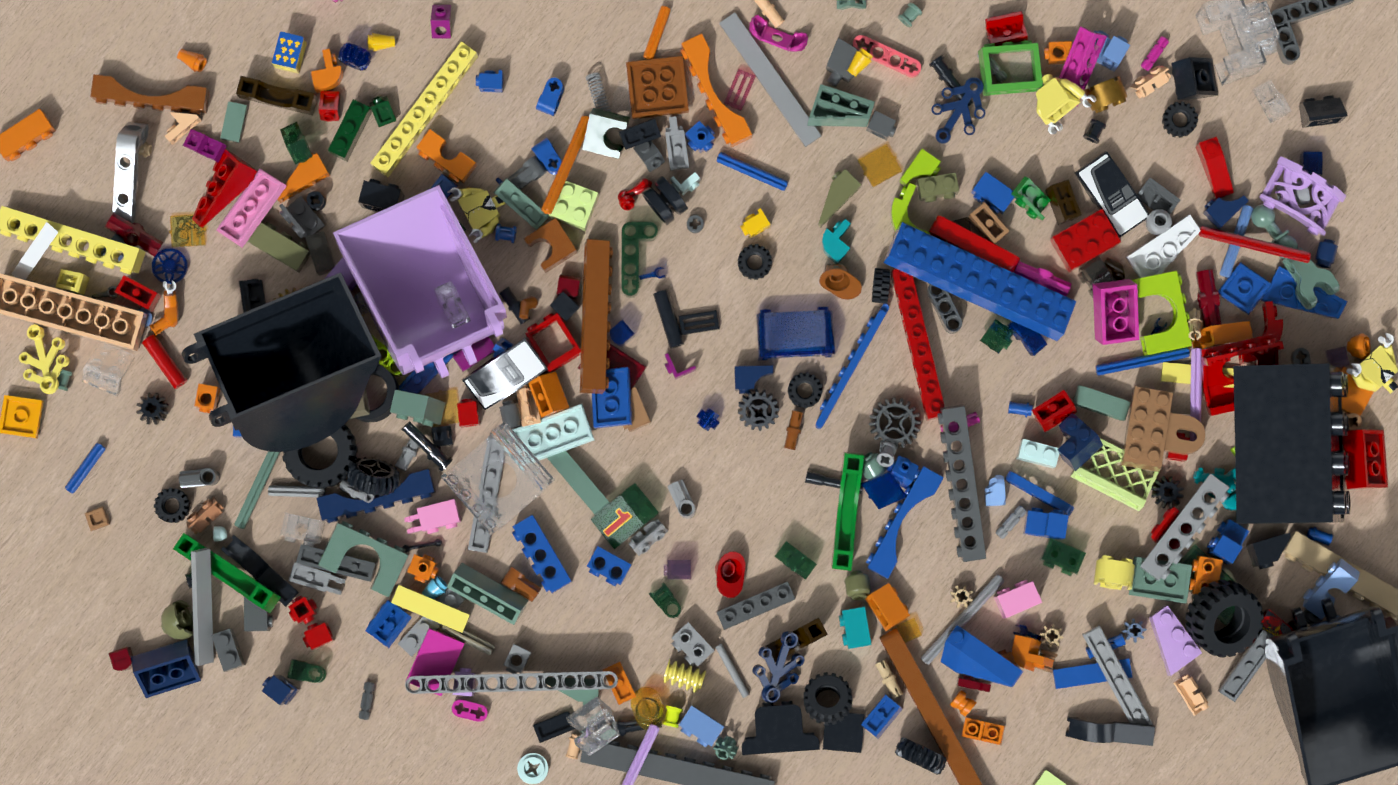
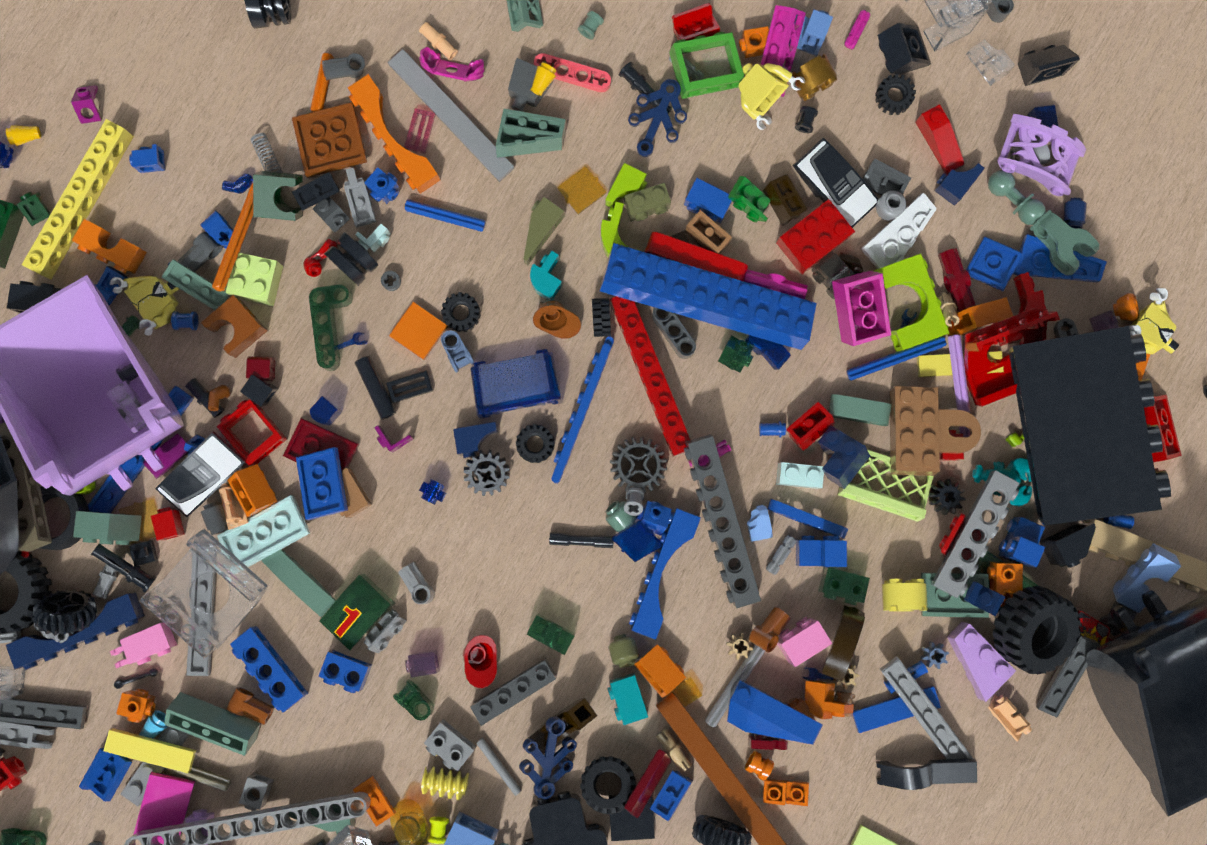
camera: 15 degrees left, 0 degrees up
(317, 636) = (29, 799): red brick -> none
(390, 558) = (98, 700): sand green arch -> none
(455, 273) = (127, 373): none -> black bush
(550, 99) = (215, 167): blue piece -> none
(570, 117) = (239, 186): none -> clear blue arm
(595, 316) = (290, 397): dark orange brick -> none
(677, 23) = (340, 67): none -> dark grey piece
(713, 273) = (418, 330): none -> orange tile
(746, 298) = (457, 351): none -> sand blue piece
(755, 224) = (455, 271): yellow brick -> none
(793, 430) = (528, 489): dark orange pin -> none
(847, 511) = (600, 571): green arch -> none
(863, 701) = (648, 783): none -> dark red tile
(881, 126) = (577, 146): dark grey brick -> none
(986, 588) = (767, 634): none -> dark orange piece
(1053, 605) = (844, 643): none -> dark brown arch
(1144, 83) = (851, 63): light nougat hinge -> none
(1183, 584) = (984, 598): none -> dark blue bracket
(1233, 250) = (976, 215): medium blue axle -> none
(1255, 244) = (999, 213): red axle -> none

